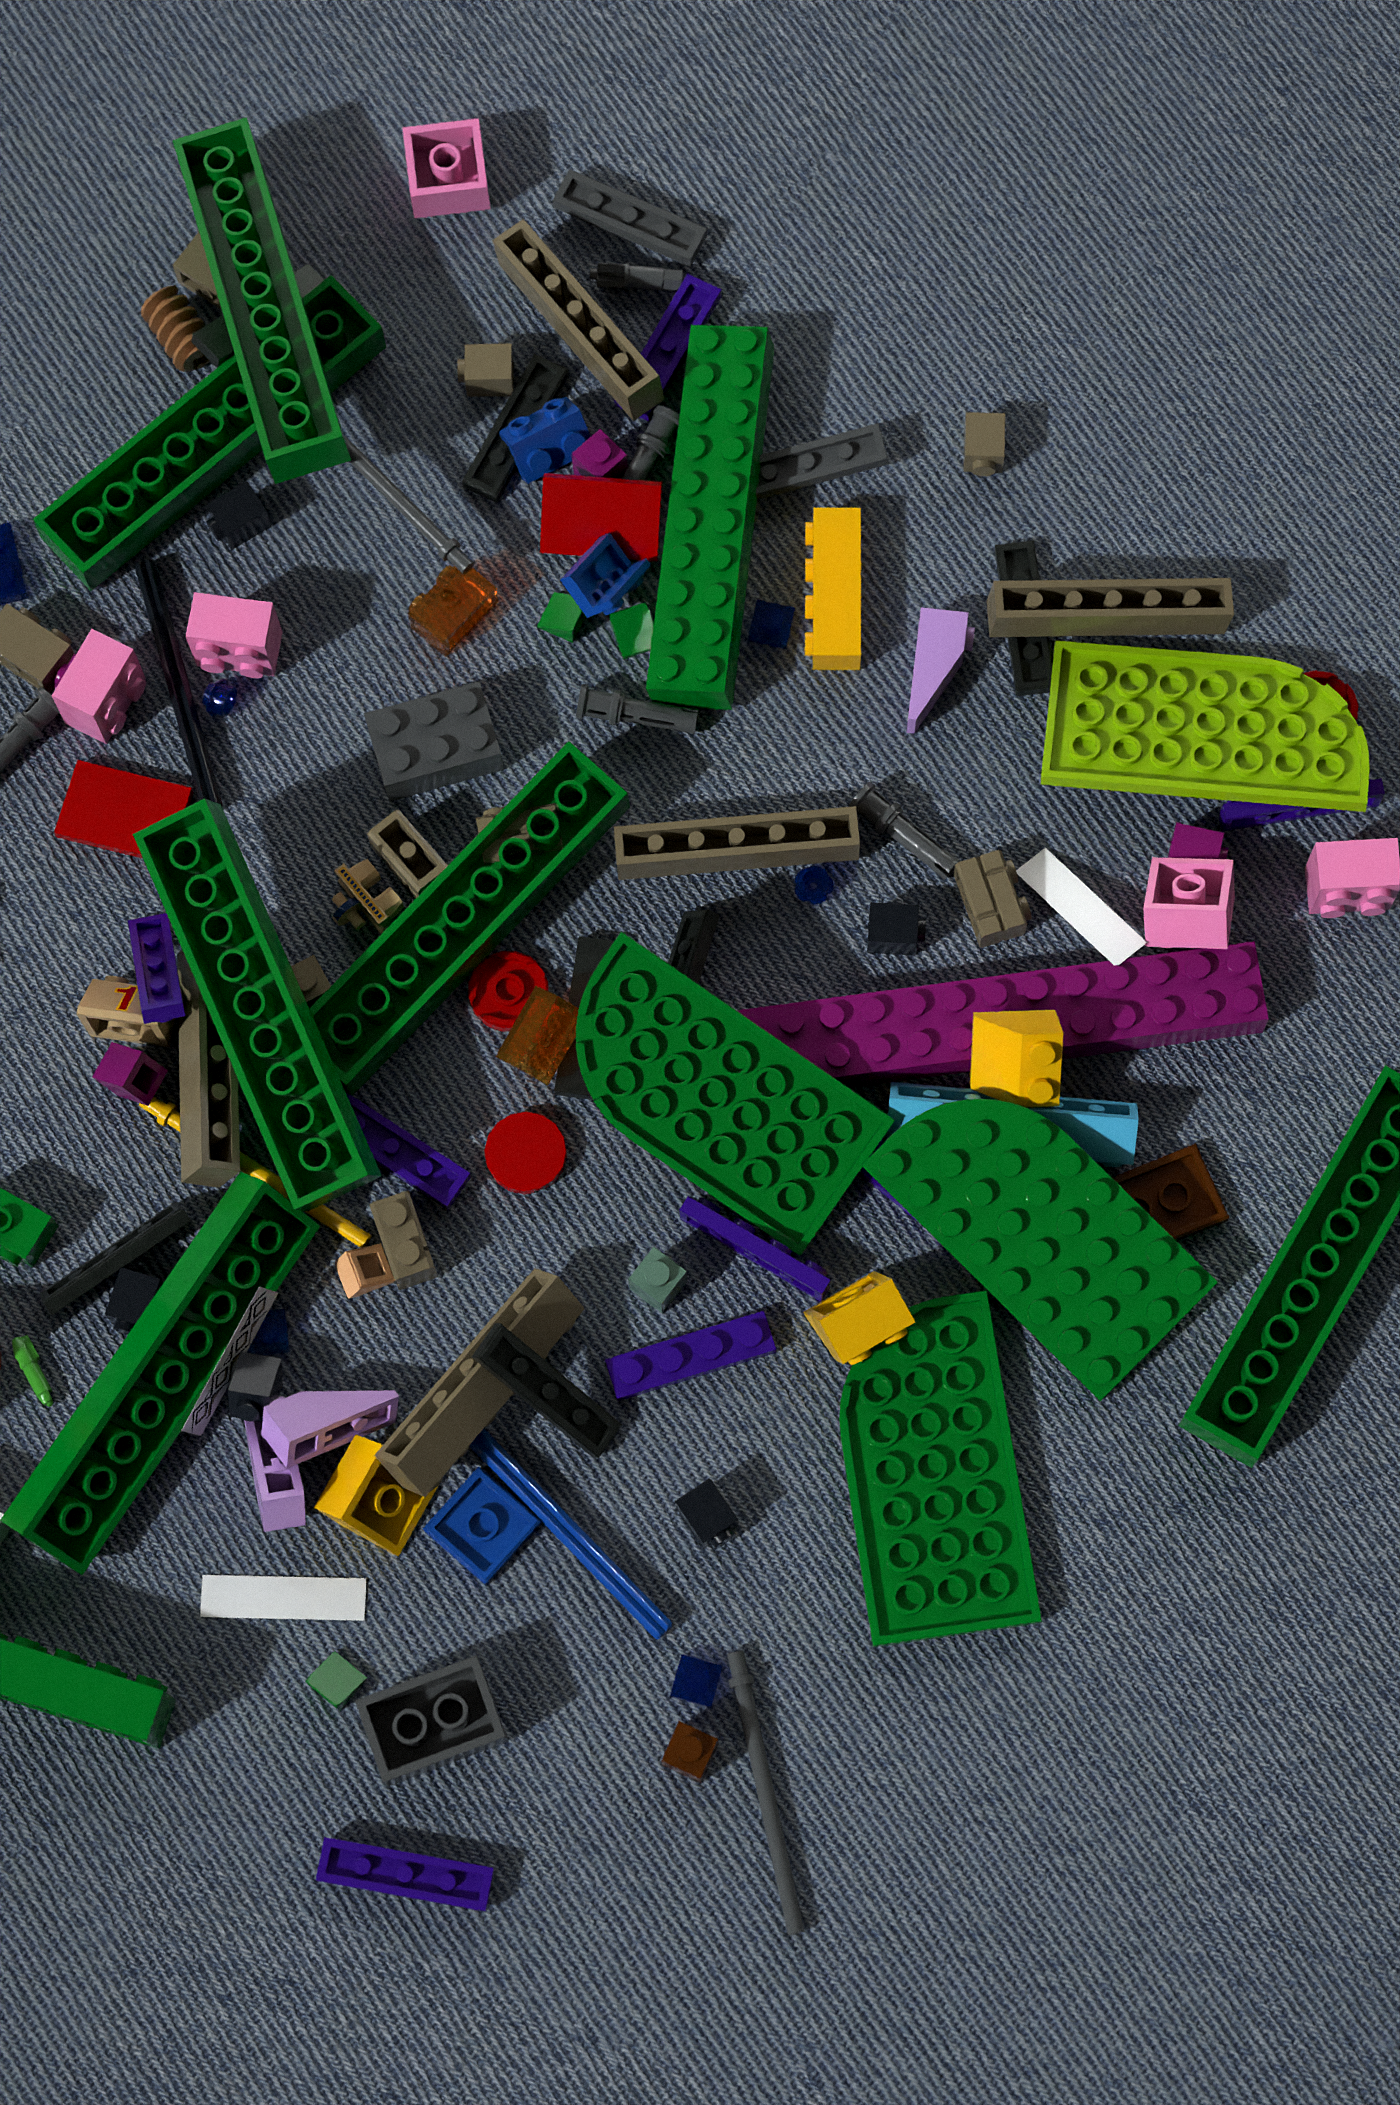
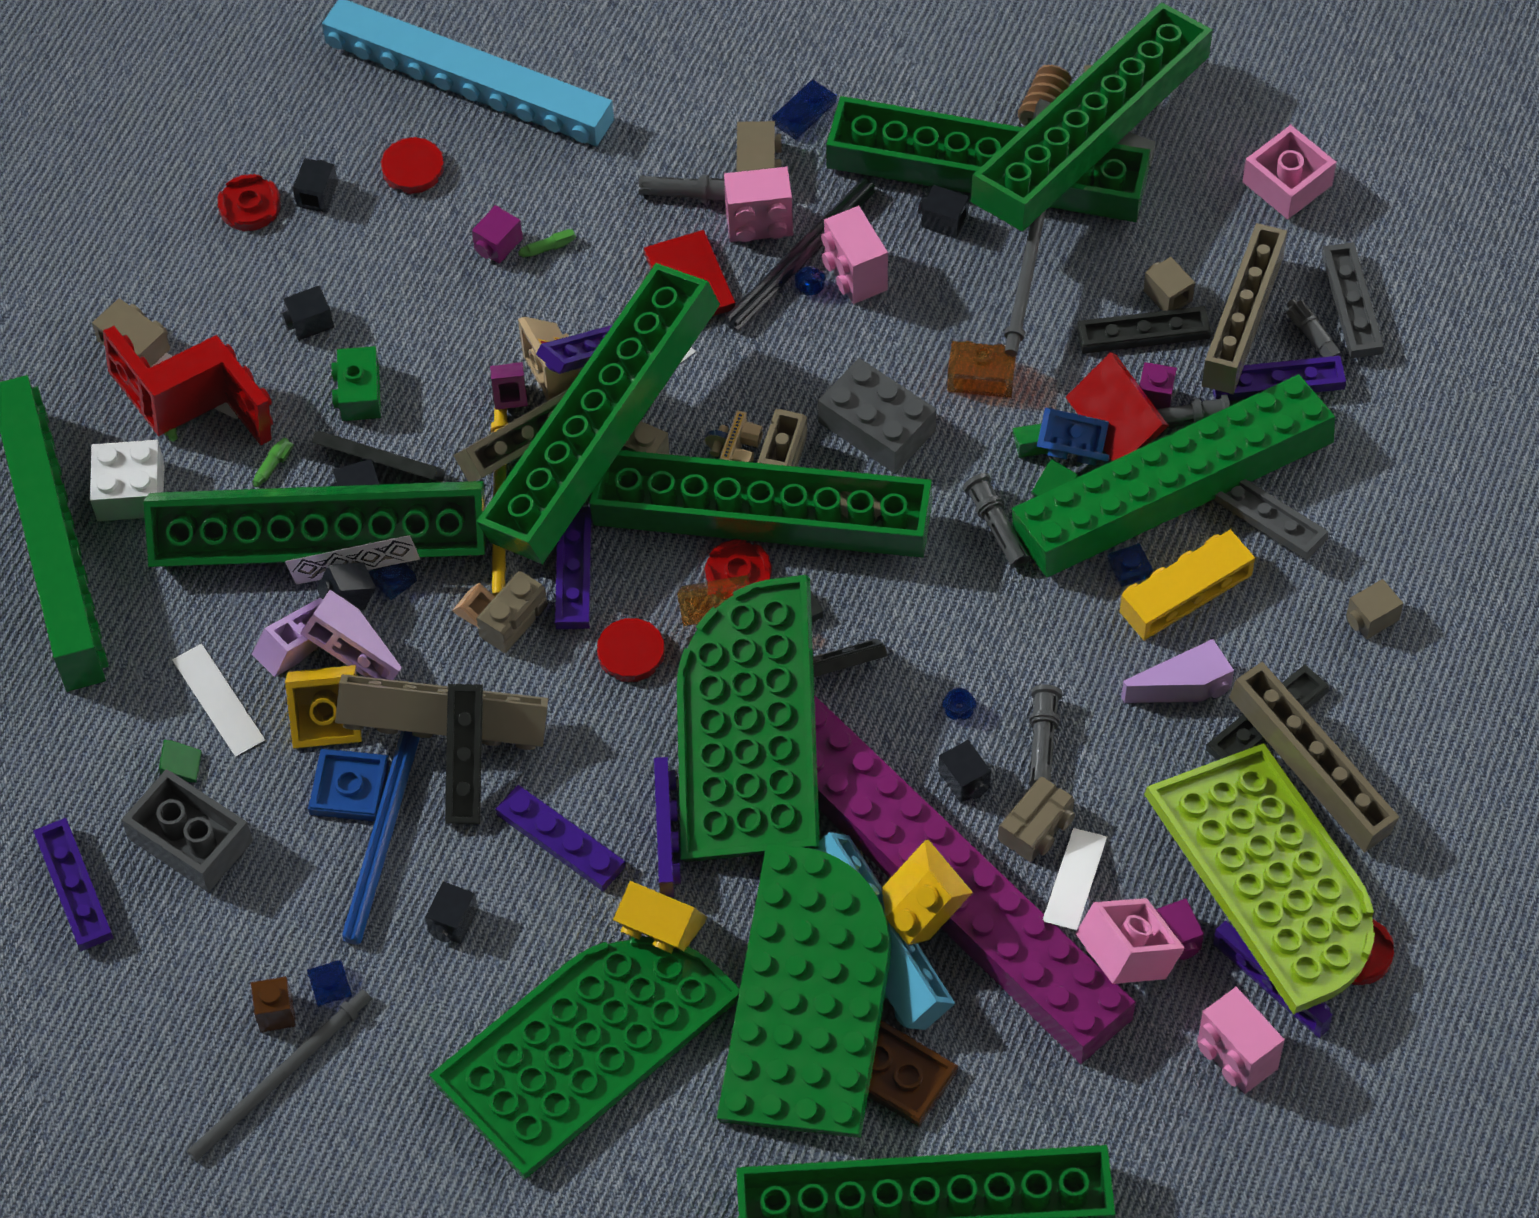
camera: 55 degrees right, 15 degrees down
(545, 438) = (1142, 343): blue bracket -> none
(658, 1280) = (596, 780): sand green brick -> none
(737, 843) = (948, 635): dark tan brick -> none

